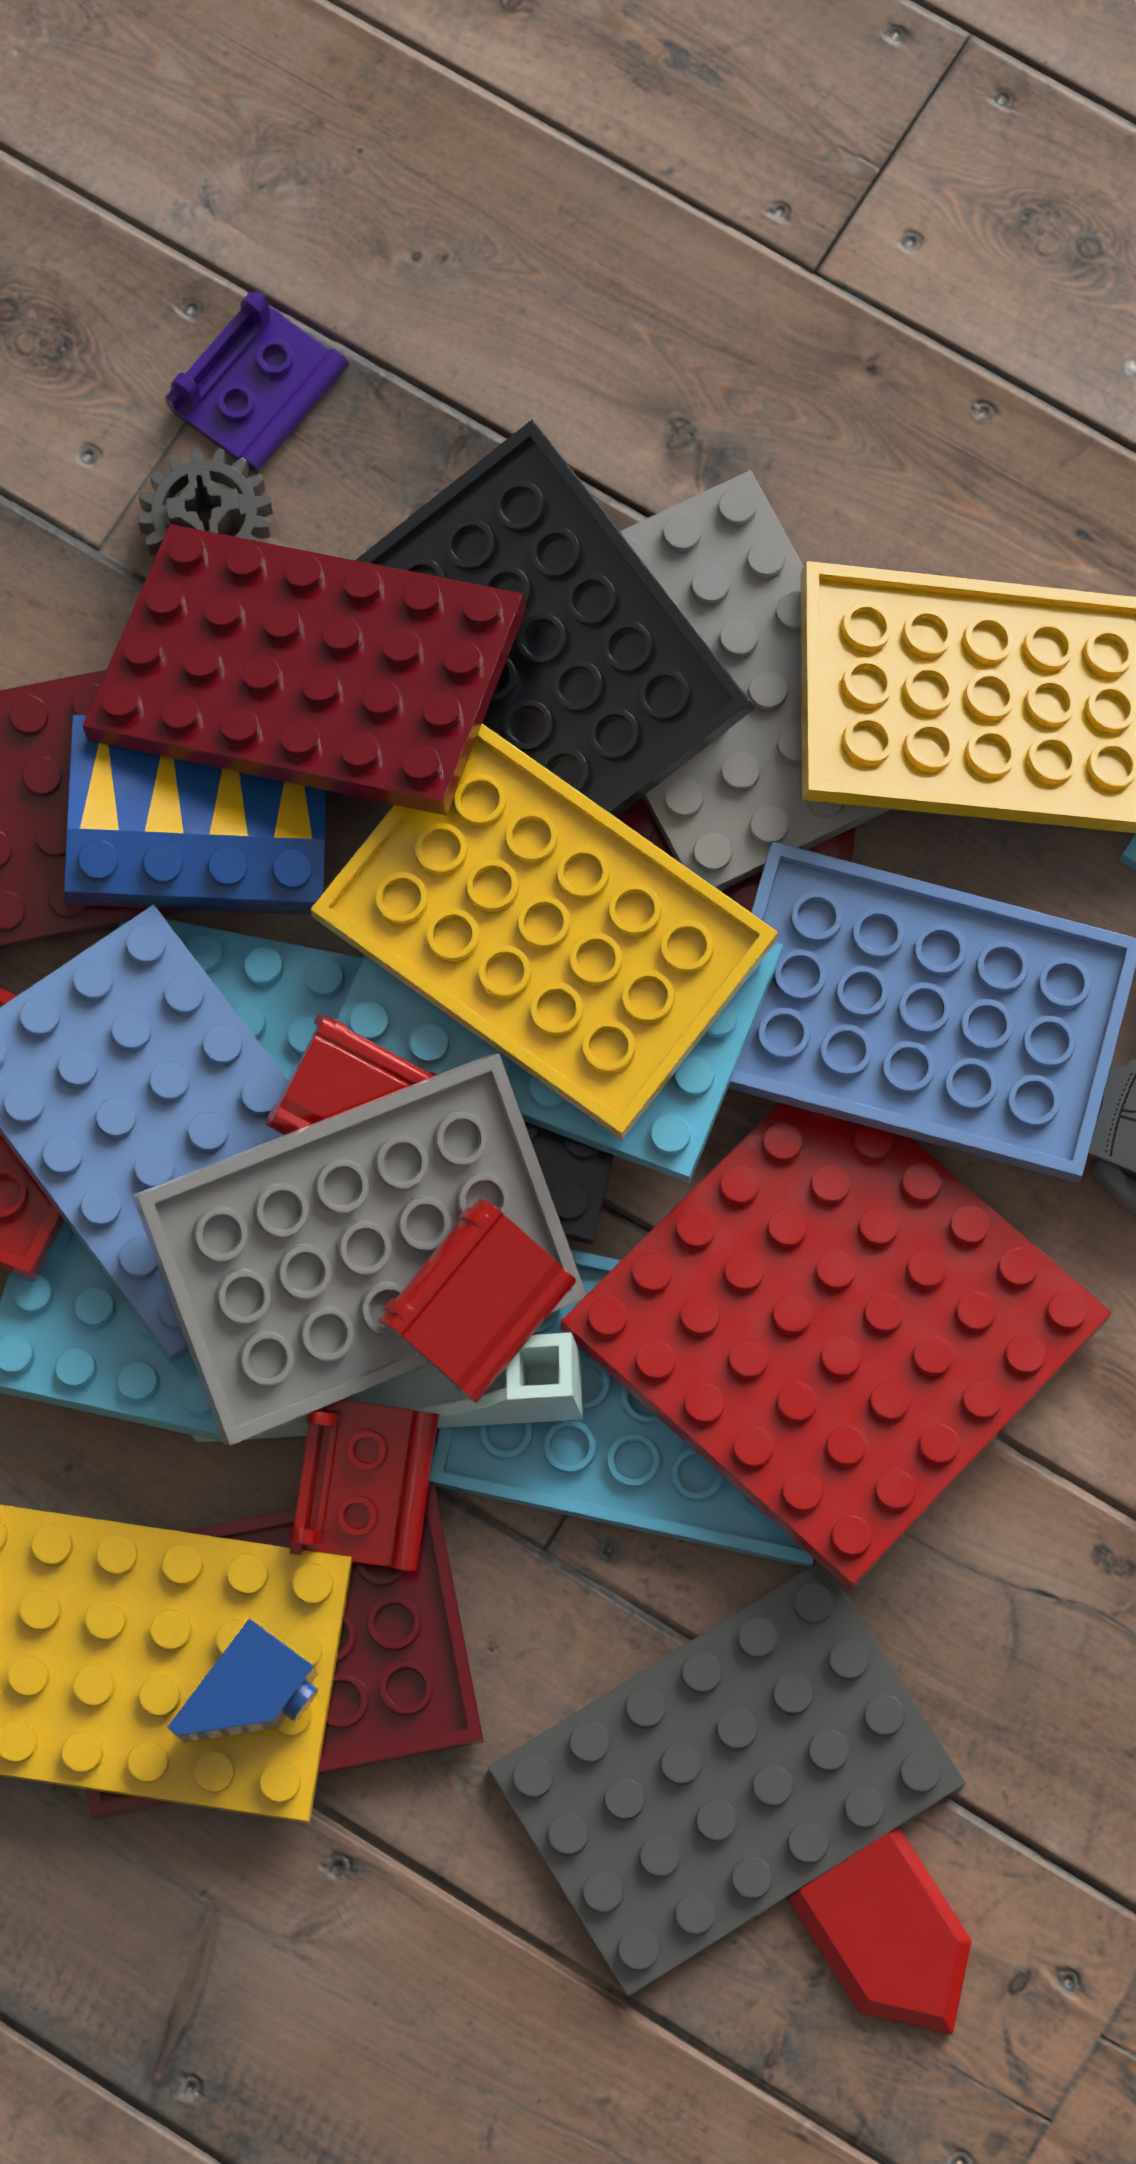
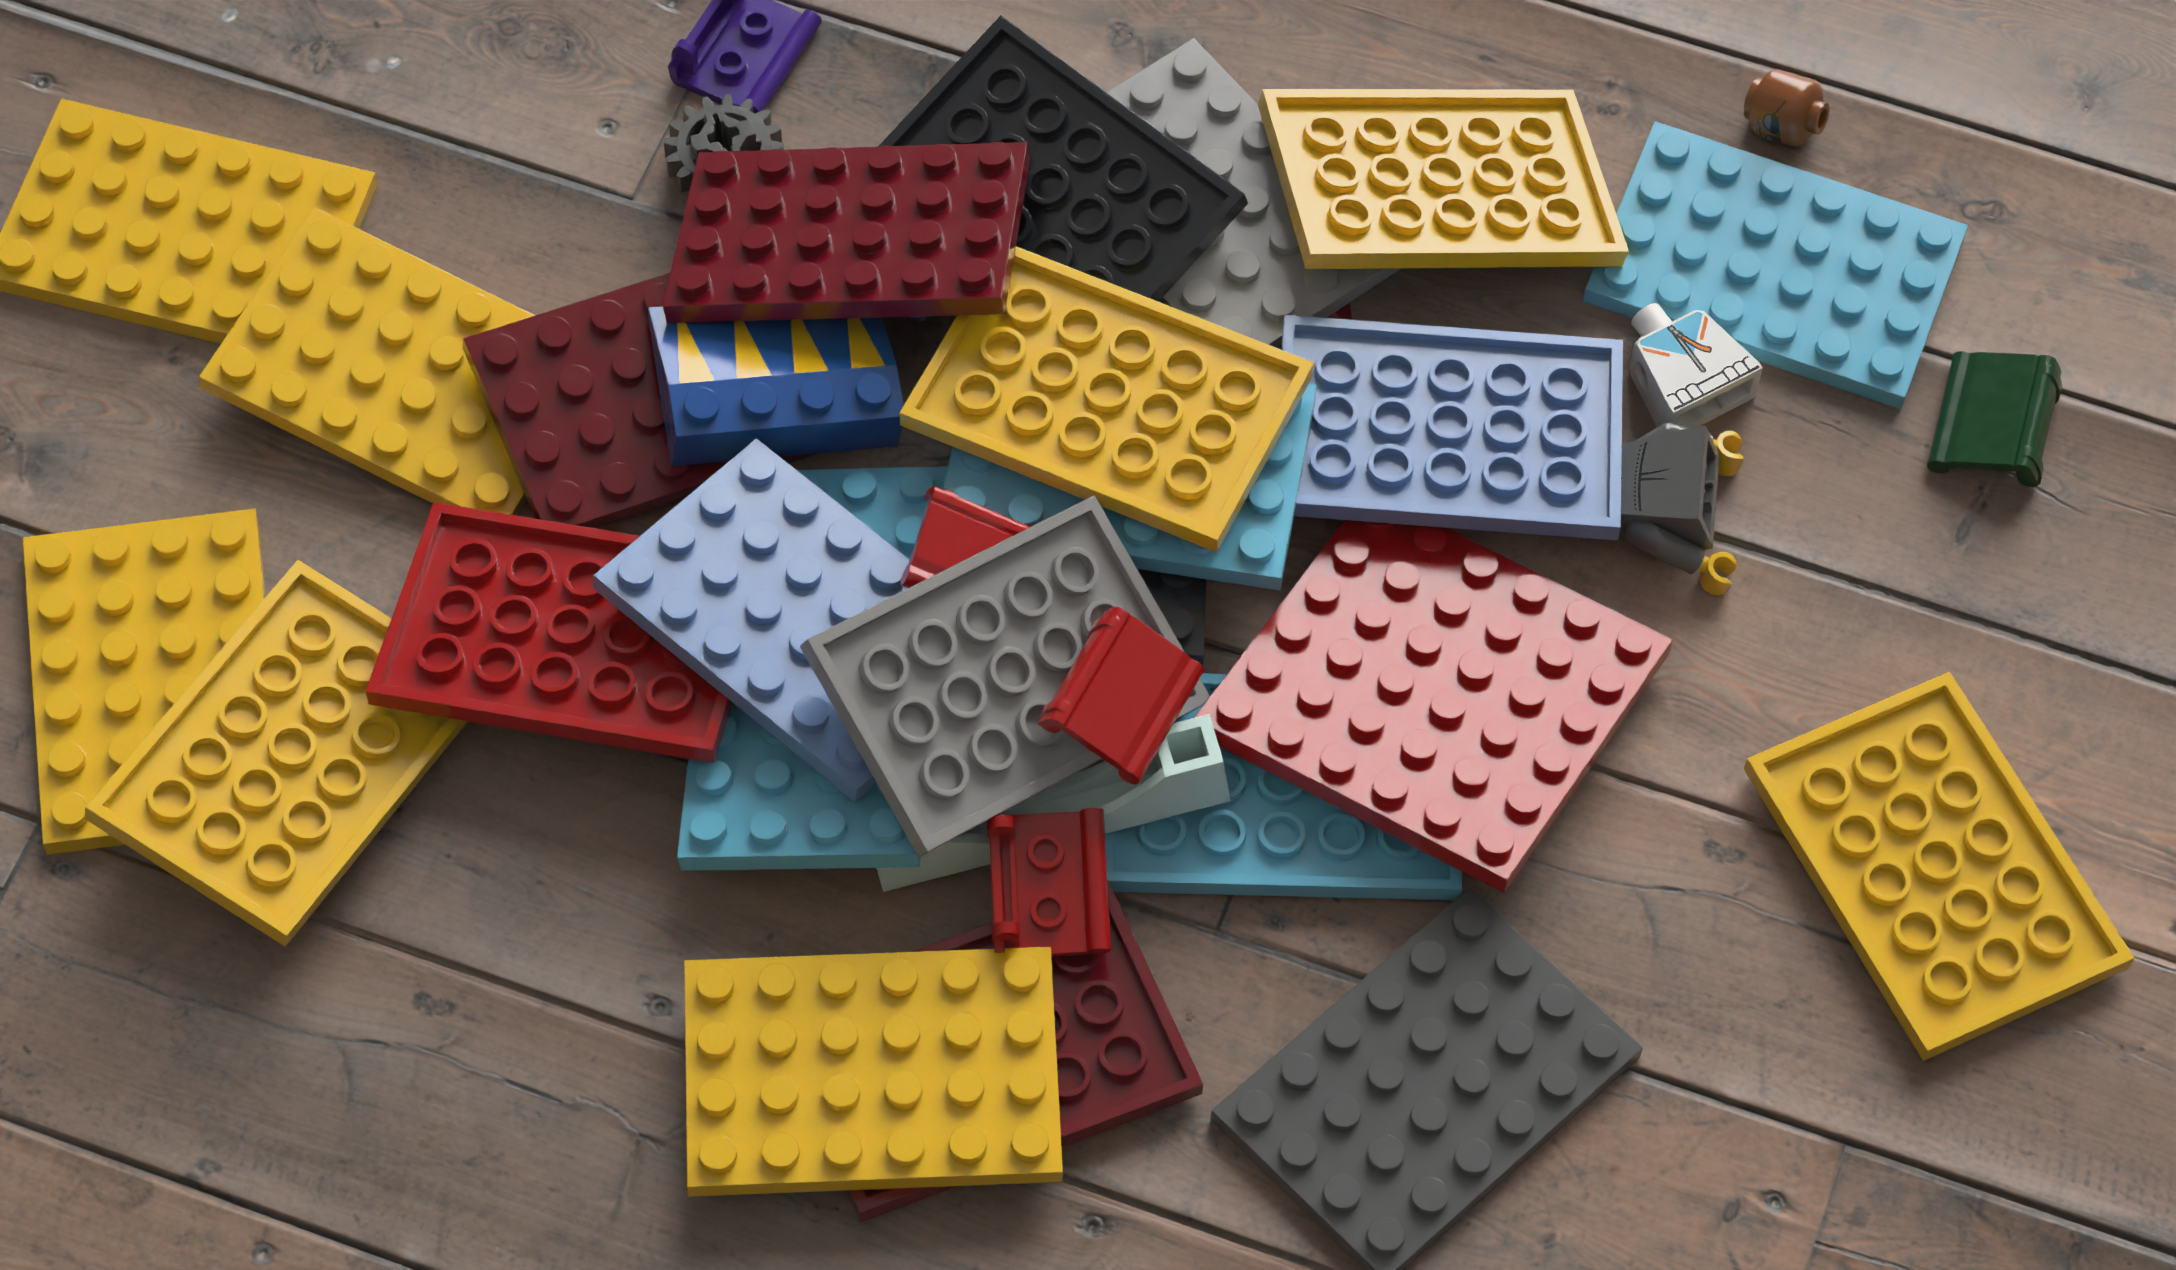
camera: 15 degrees left, 15 degrees down
(247, 1689) = (986, 1058): blue slope -> none
(888, 1935) = (1604, 1189): red tile -> none

